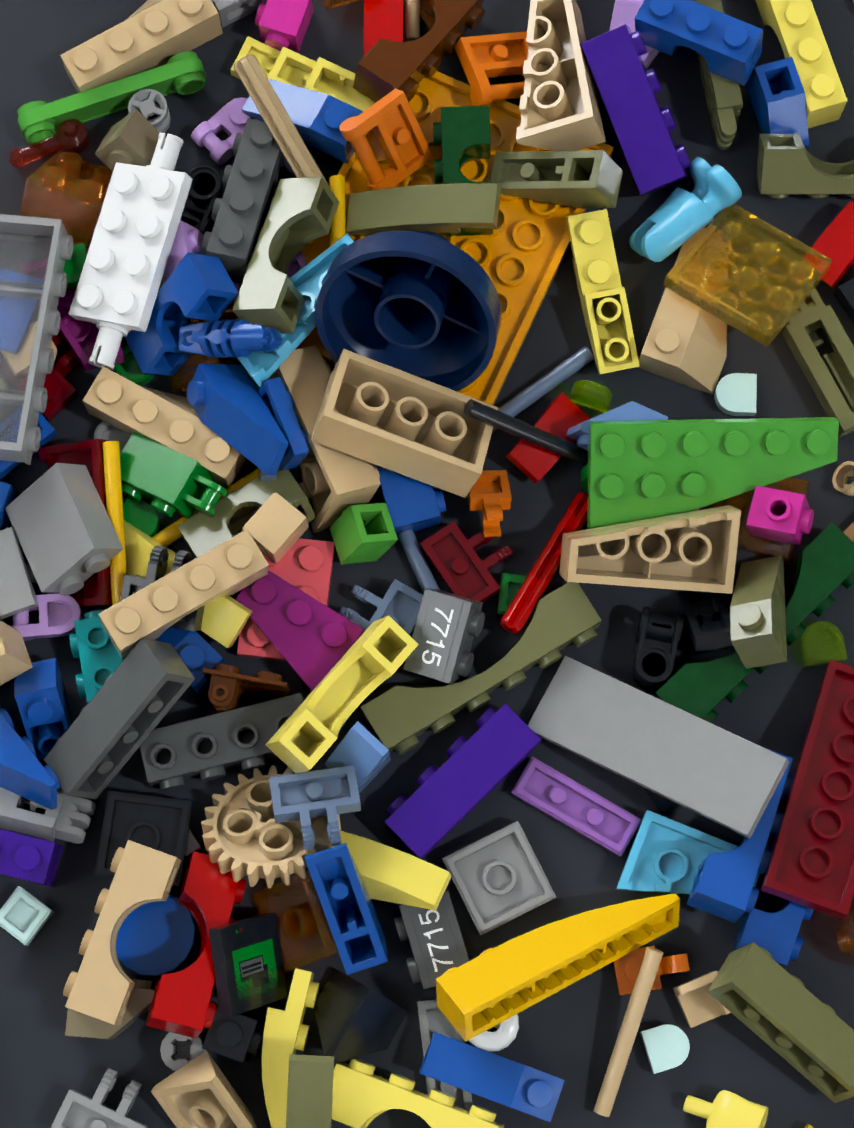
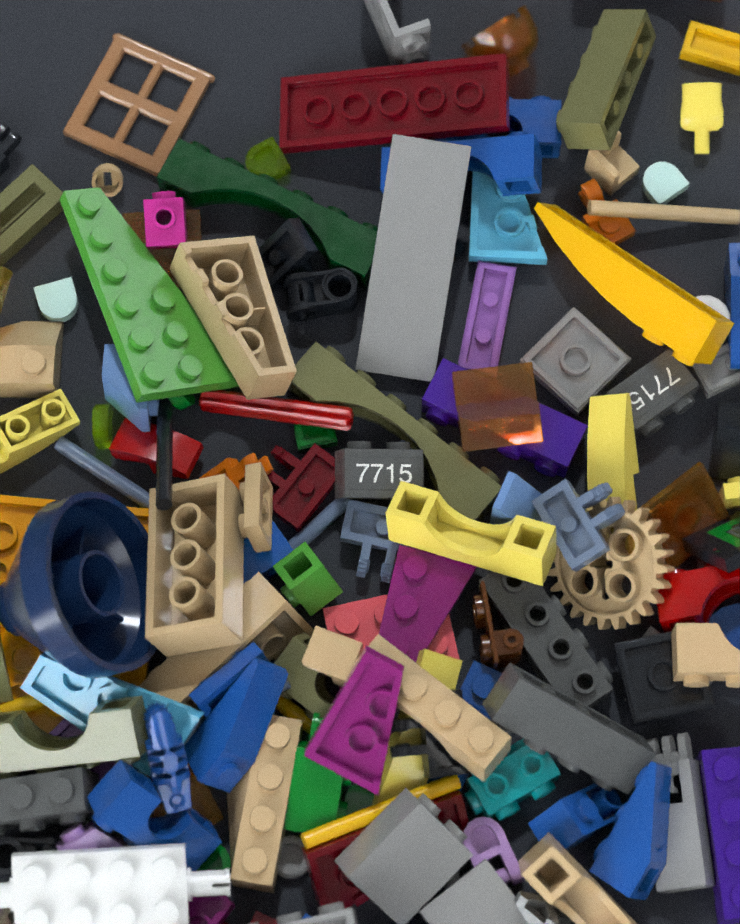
camera: 110 degrees left, 5 degrees down
(189, 517) = (359, 721): none -> magenta wing
(347, 908) = (660, 464): blue slope -> none
(443, 502) = (258, 506): none -> tan plate
(468, 772) = (497, 406): none -> clear orange slope
(759, 613) = (260, 208): olive slope -> none

